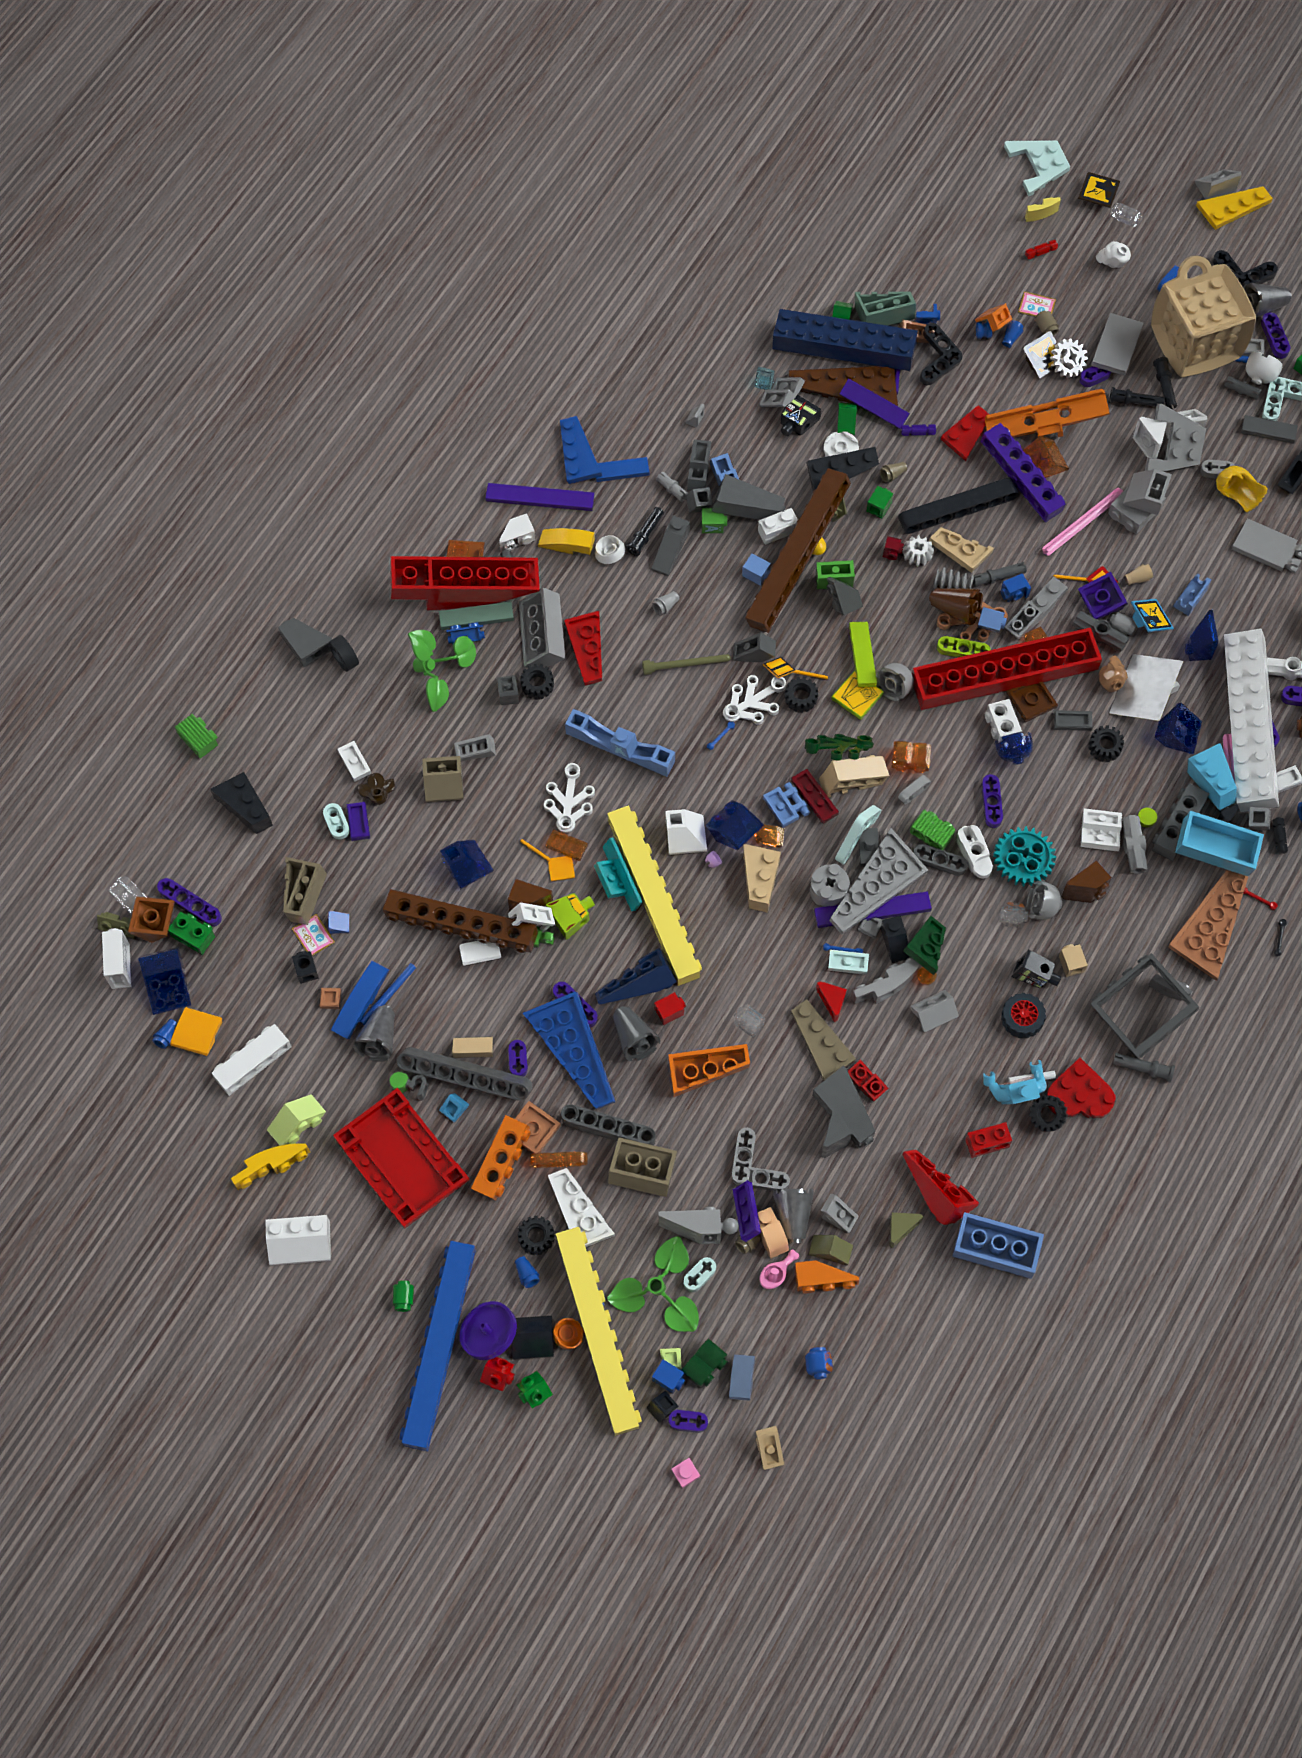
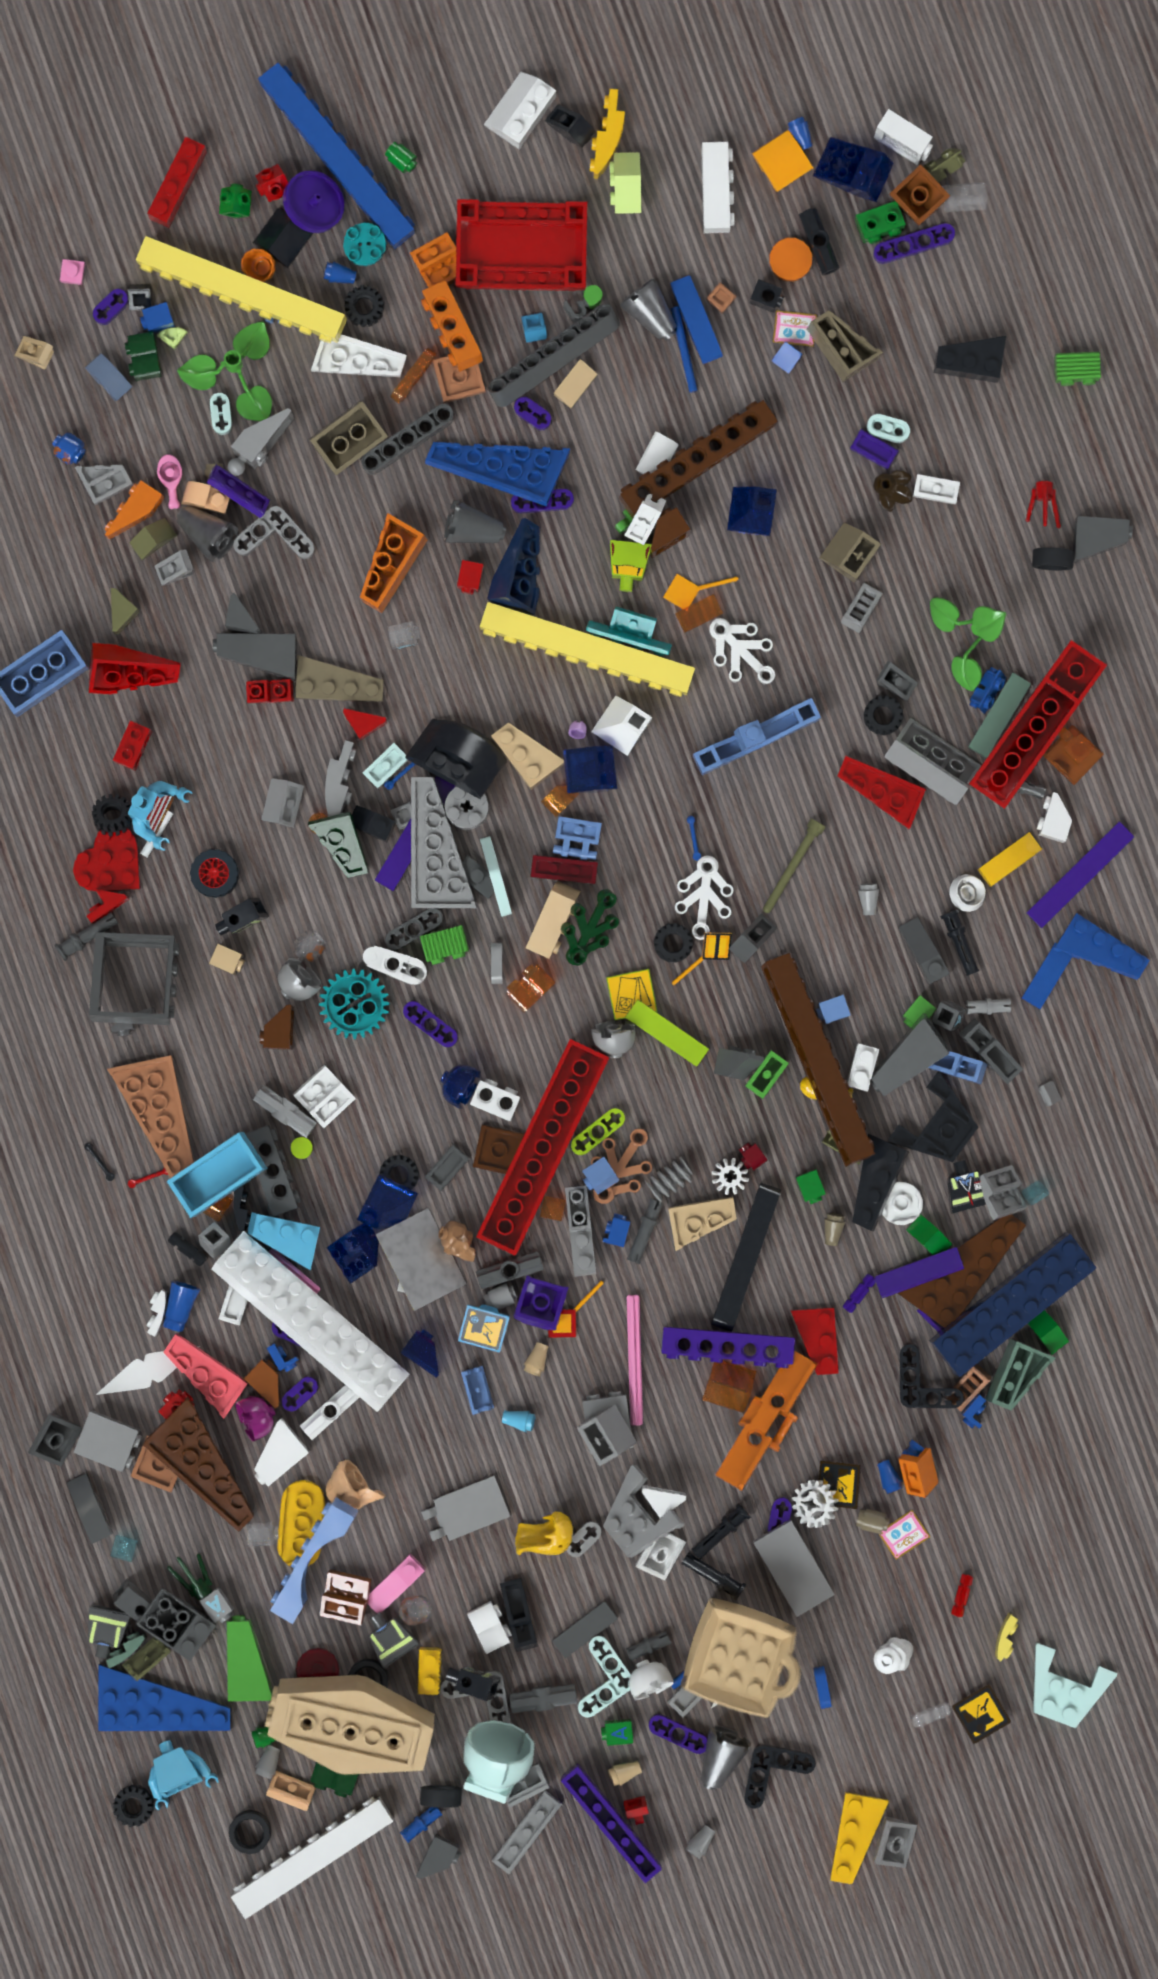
camera: 130 degrees right, 20 degrees up
(243, 952) = (823, 254): none -> black piece
(265, 973) = (790, 259): none -> orange tile
(283, 1194) = (570, 125): none -> black slope
(301, 694) = (1044, 492): none -> red plant
(461, 1209) = (436, 260): none -> orange slope
(482, 1274) = (364, 254): none -> teal plate
(554, 1446) = (177, 182): none -> red brick
(774, 453) = (947, 1129): none -> black wing
(800, 917) = (458, 755): none -> black slope
(820, 1317) = (104, 481): none -> light grey wing
(958, 603) = (642, 1159): reddish brown cone -> none
(1106, 1067) = (111, 902): none -> red slope
(1134, 733) = (386, 1204): none -> clear blue slope
(1185, 557) = (519, 1419): none -> medium azure cone
(1290, 718) = (278, 1355): none -> blue bracket

